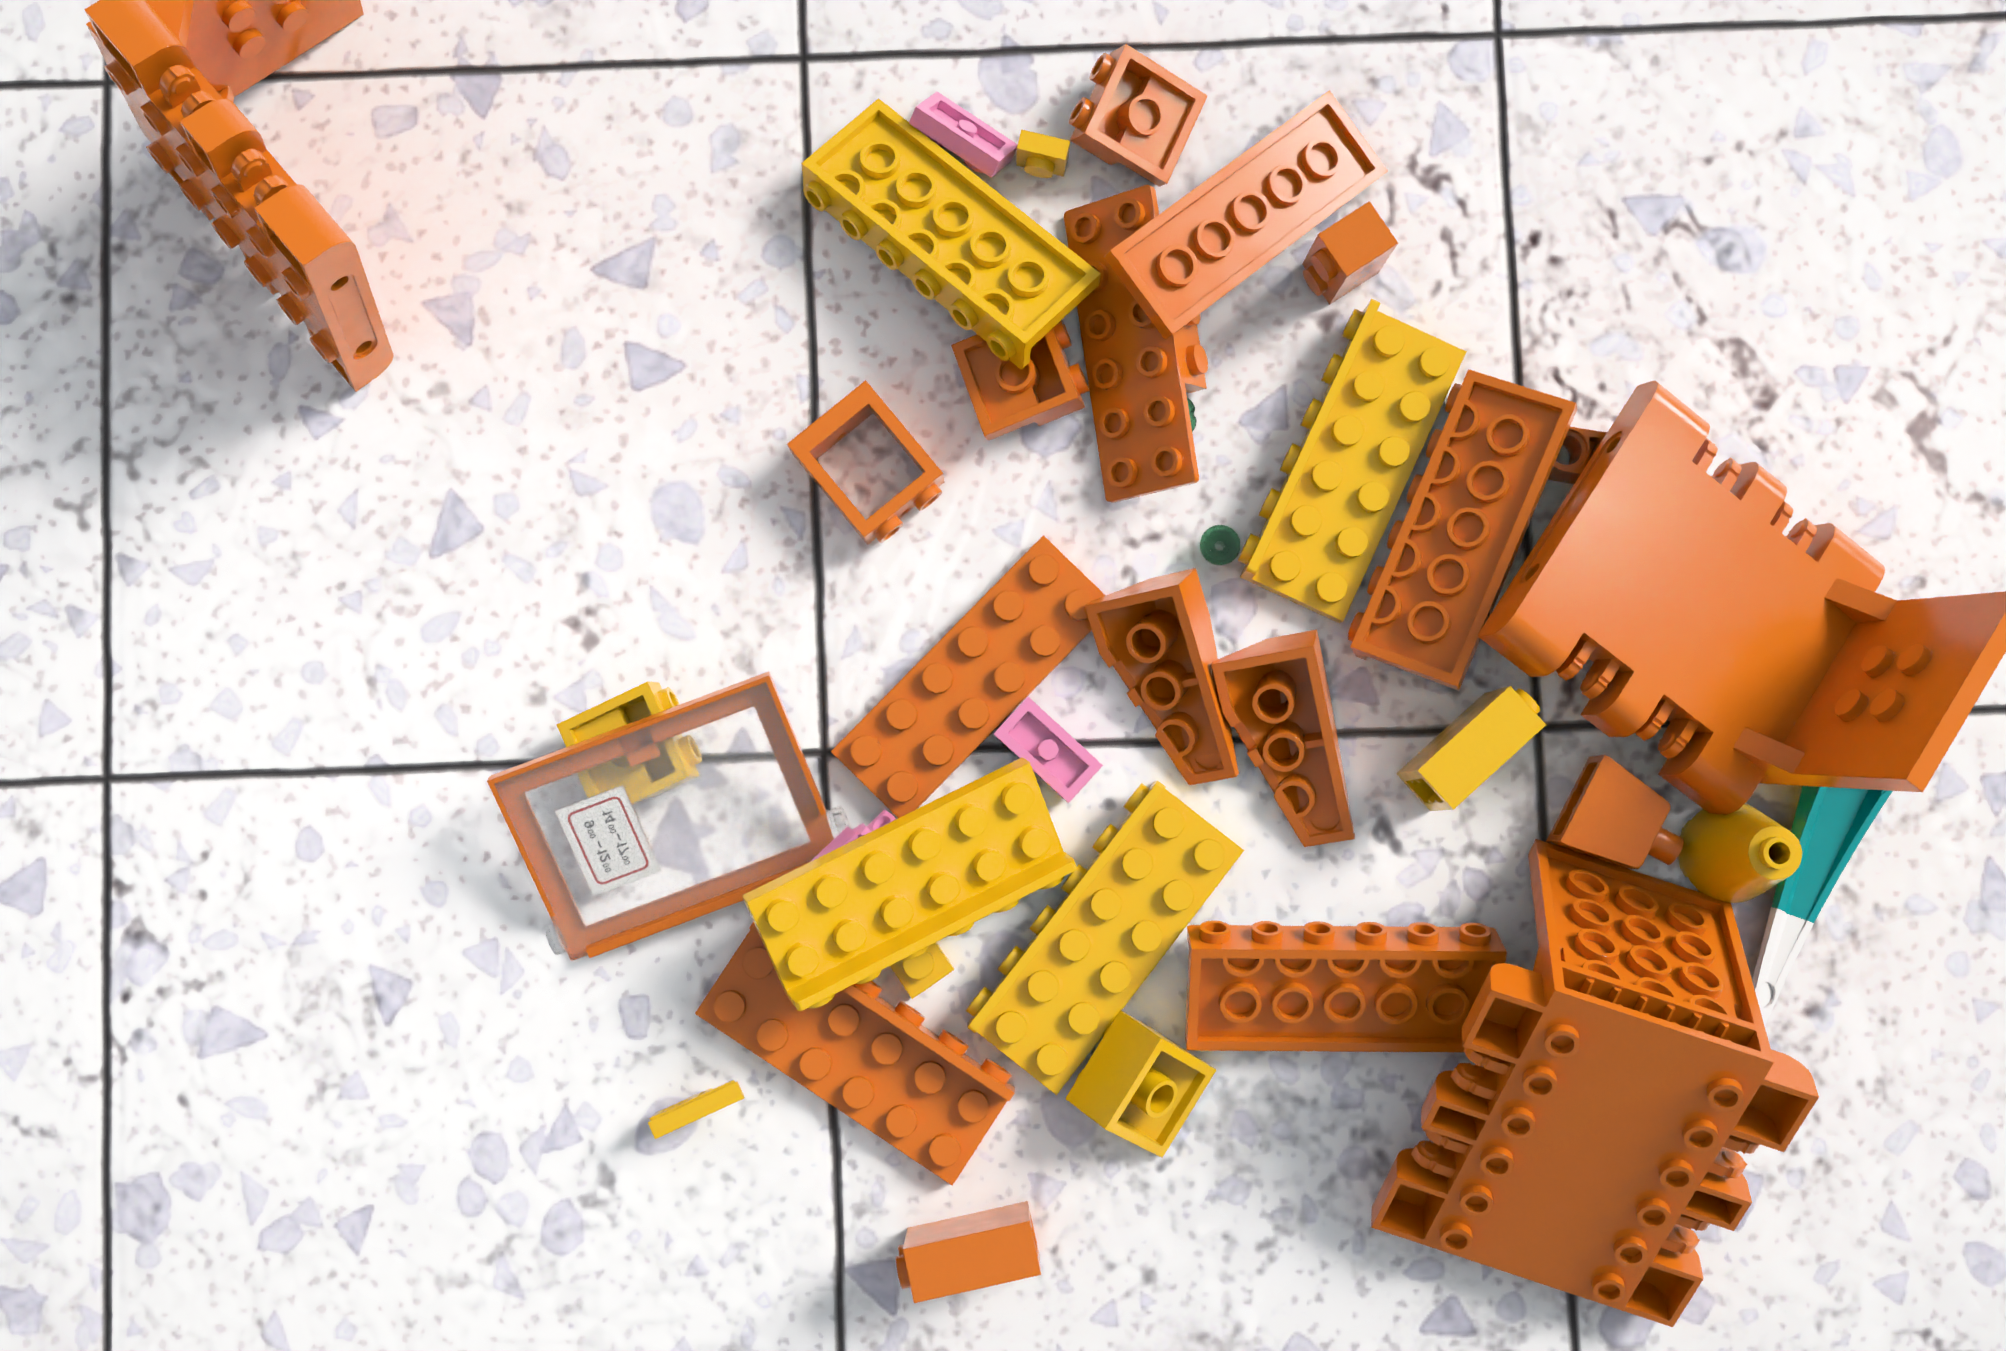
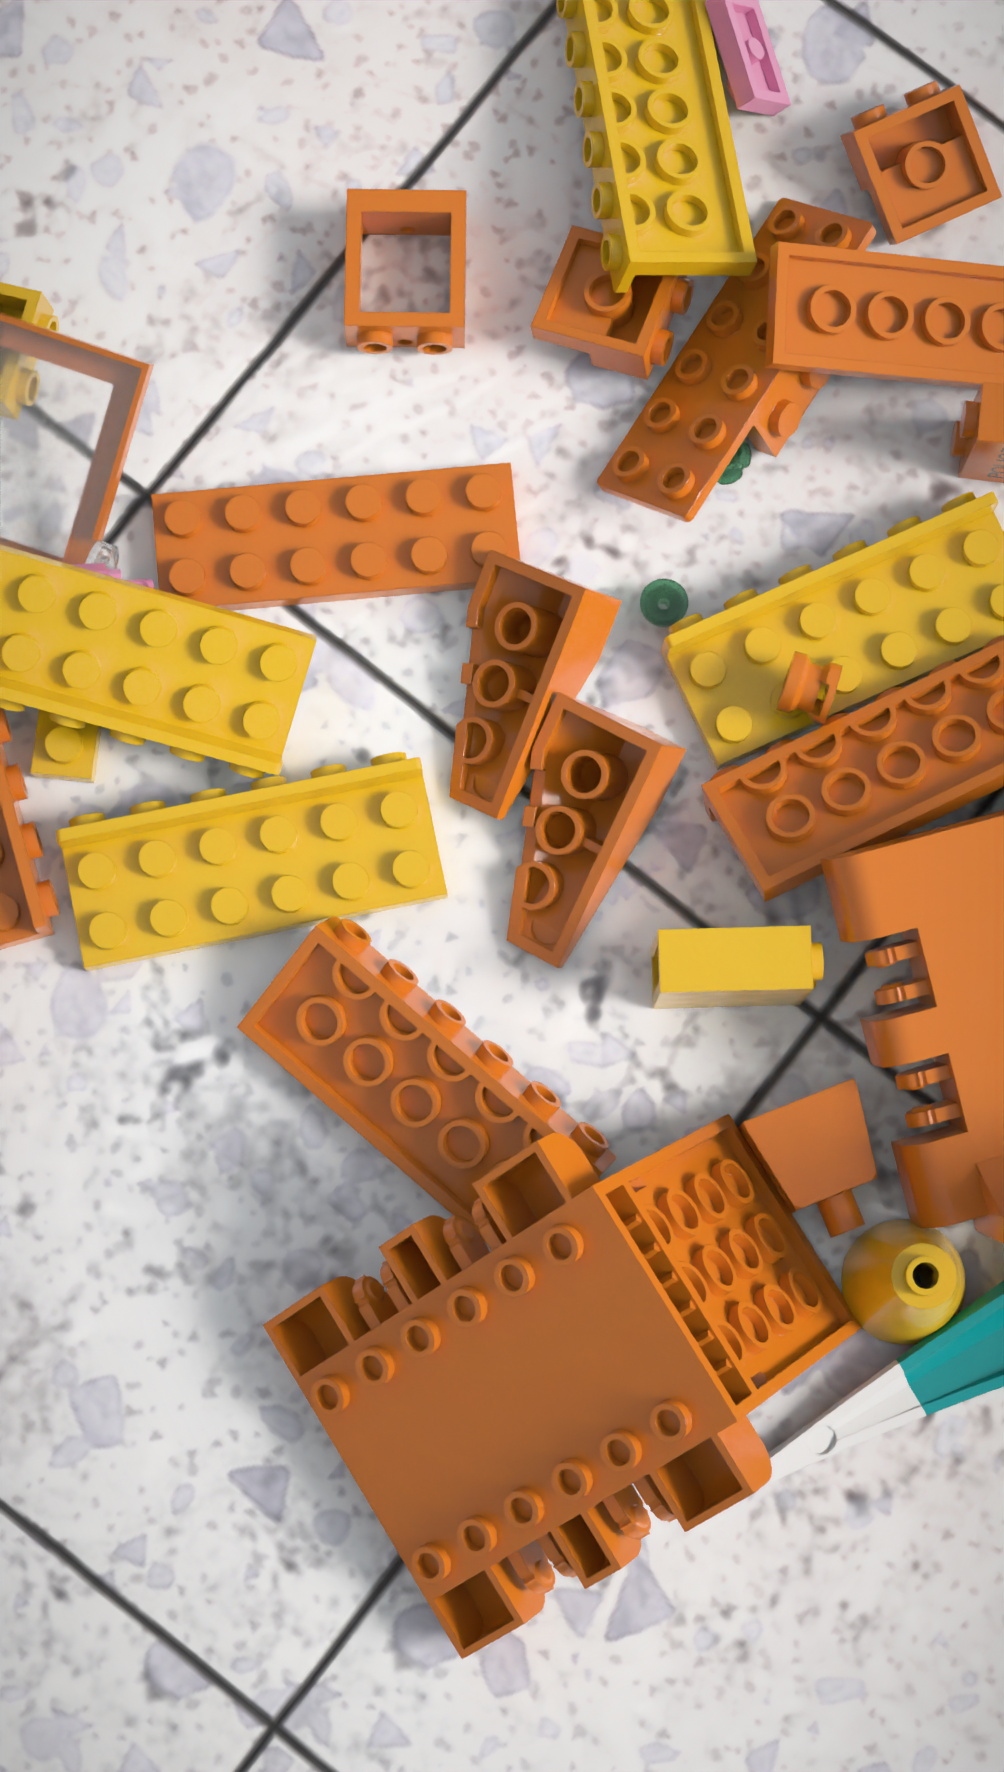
camera: 40 degrees right, 5 degrees down
(1042, 154) = (803, 127): yellow plate -> none
(1049, 749) = (347, 655): bright pink plate -> none
(1140, 1084) = (167, 1022): yellow slope -> none
(1366, 526) = (803, 685): none -> orange wheel

